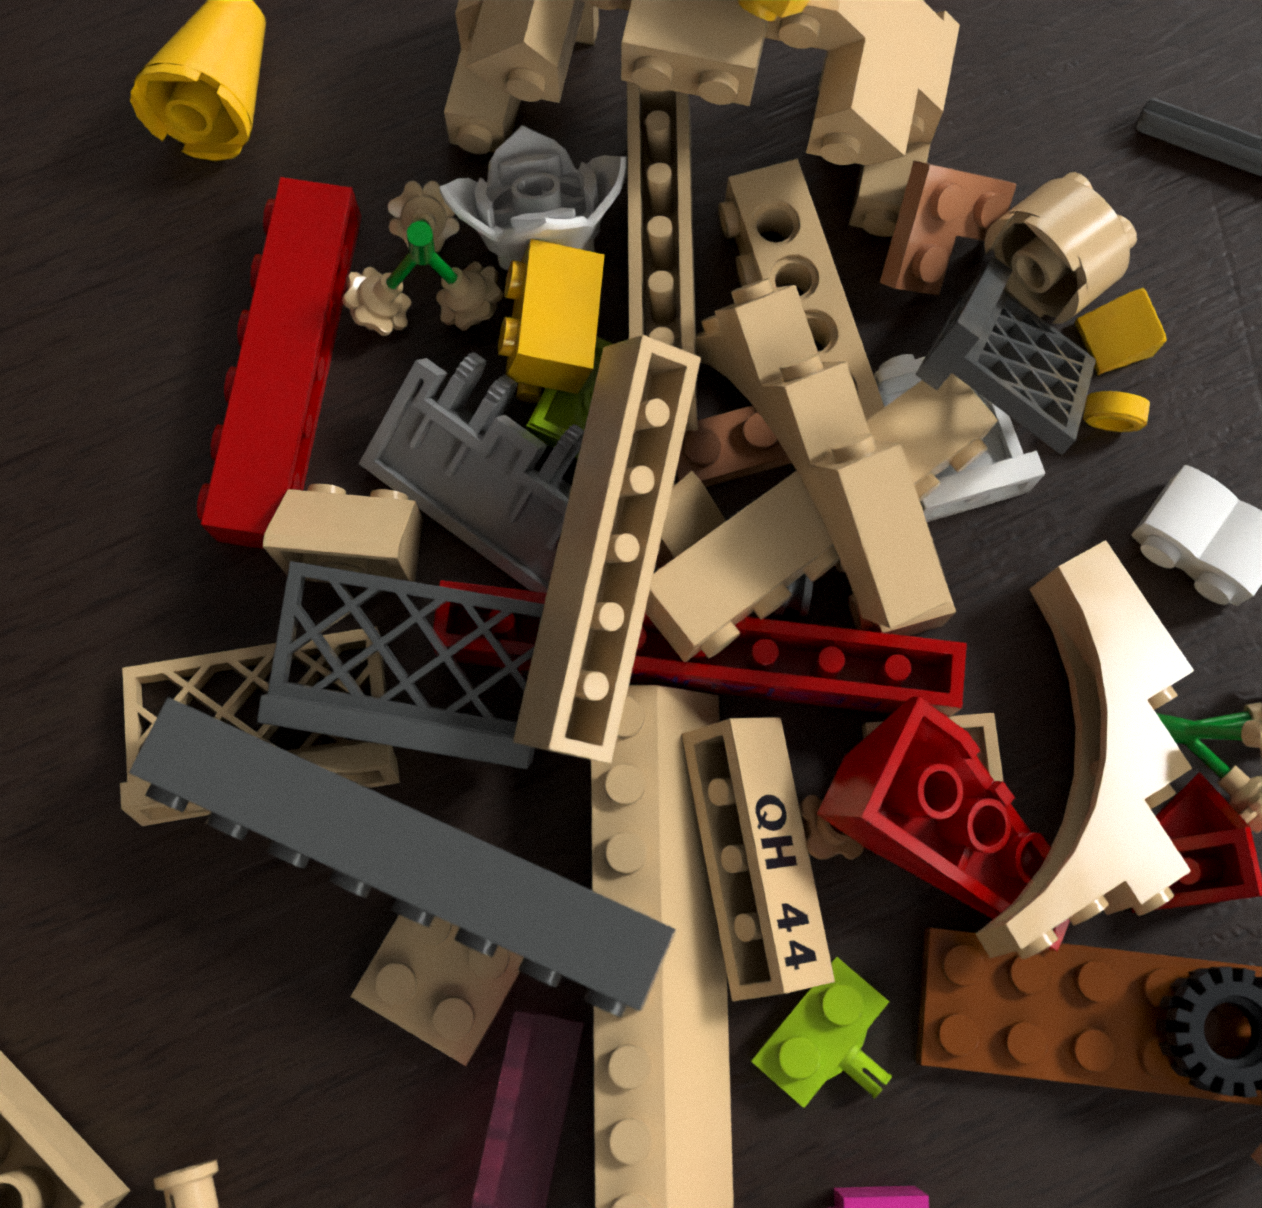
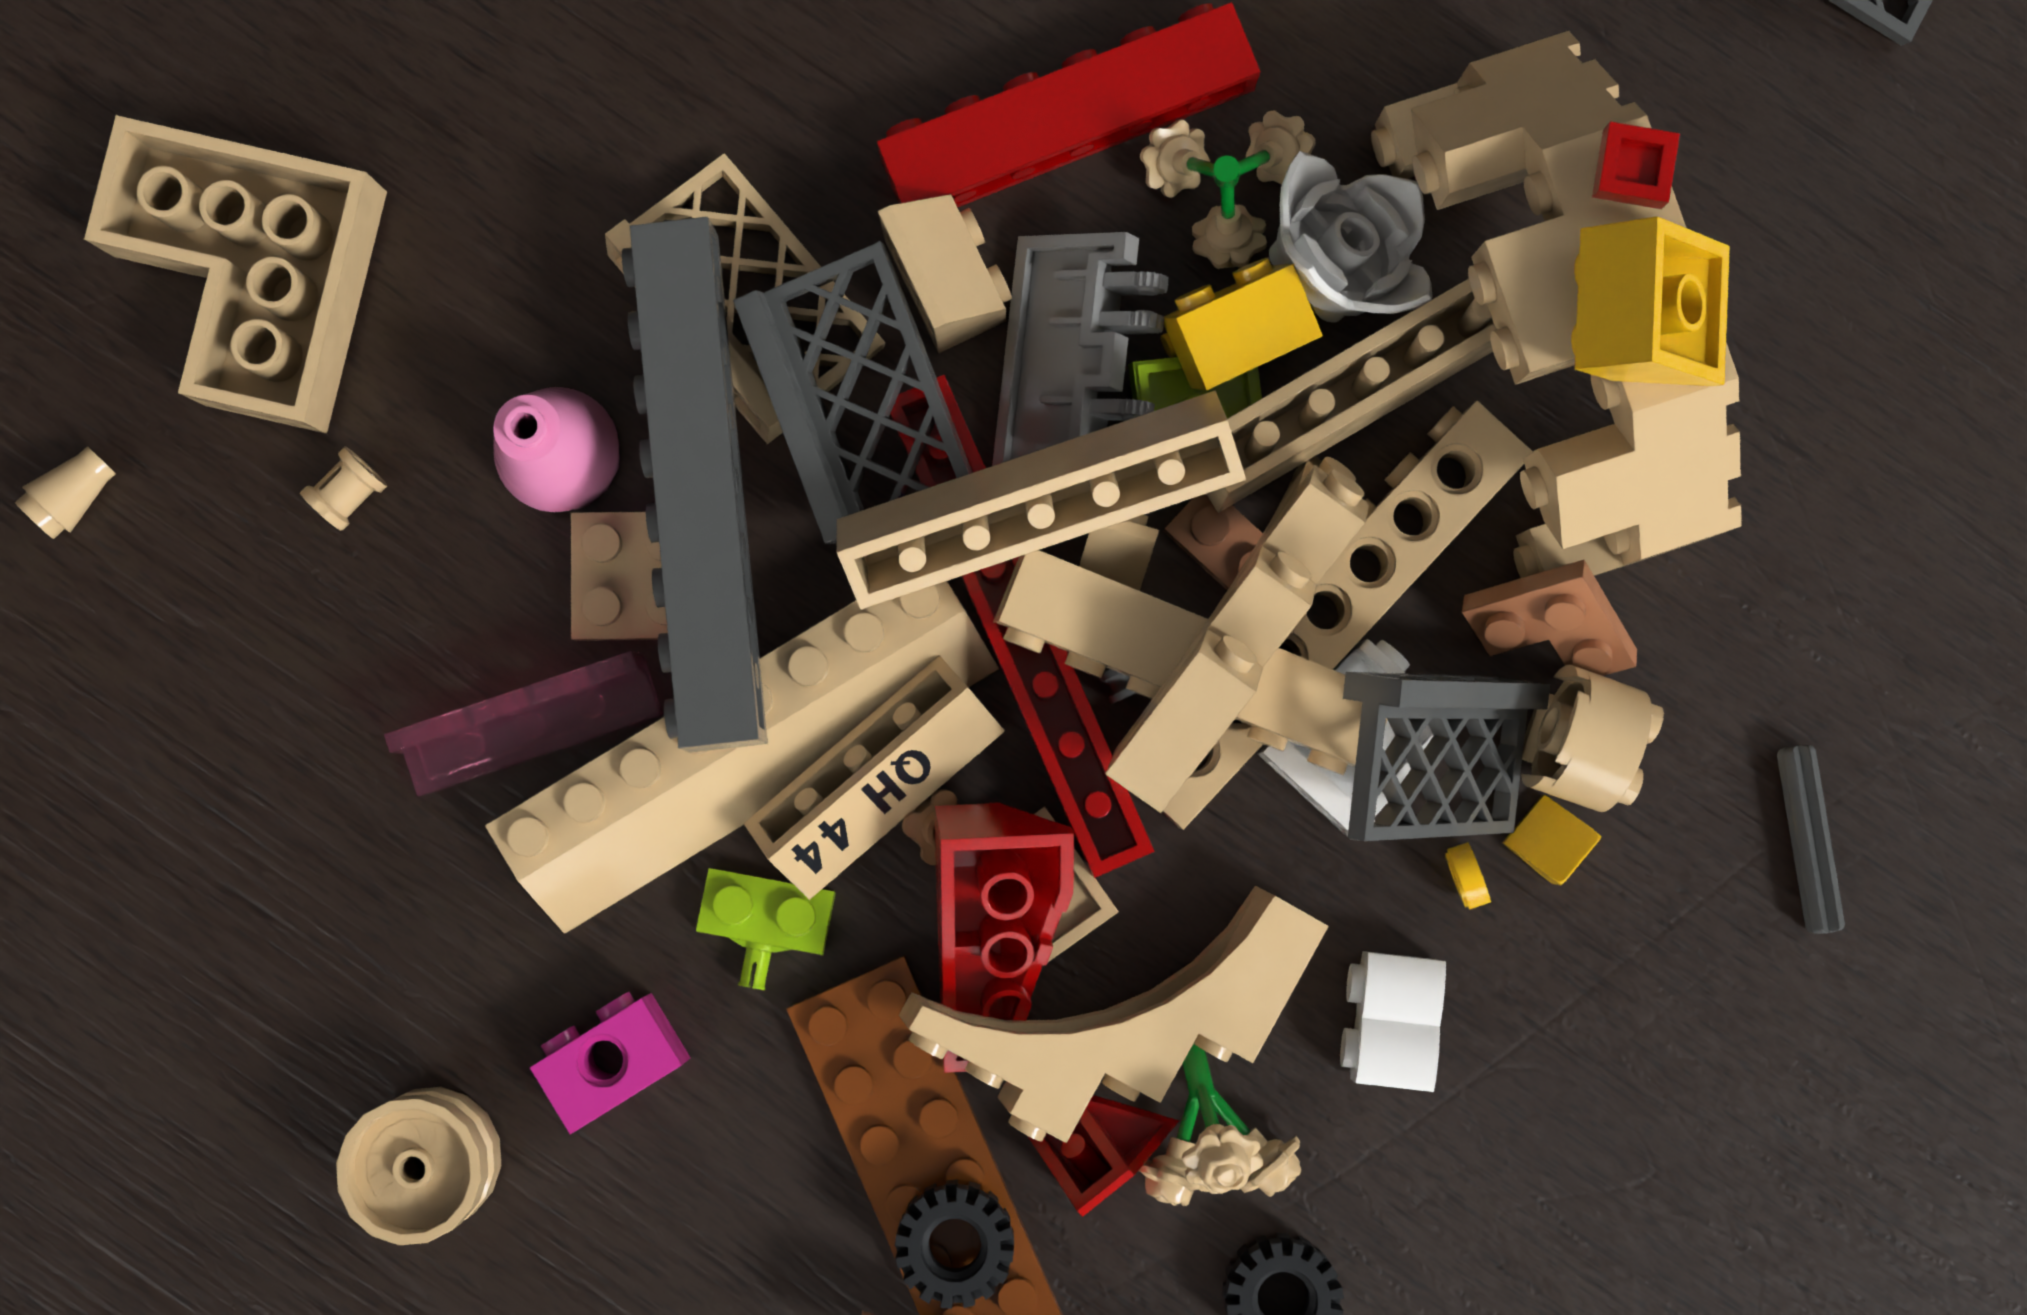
camera: 65 degrees right, 10 degrees up
(284, 977) = (555, 449): none -> bright pink cone

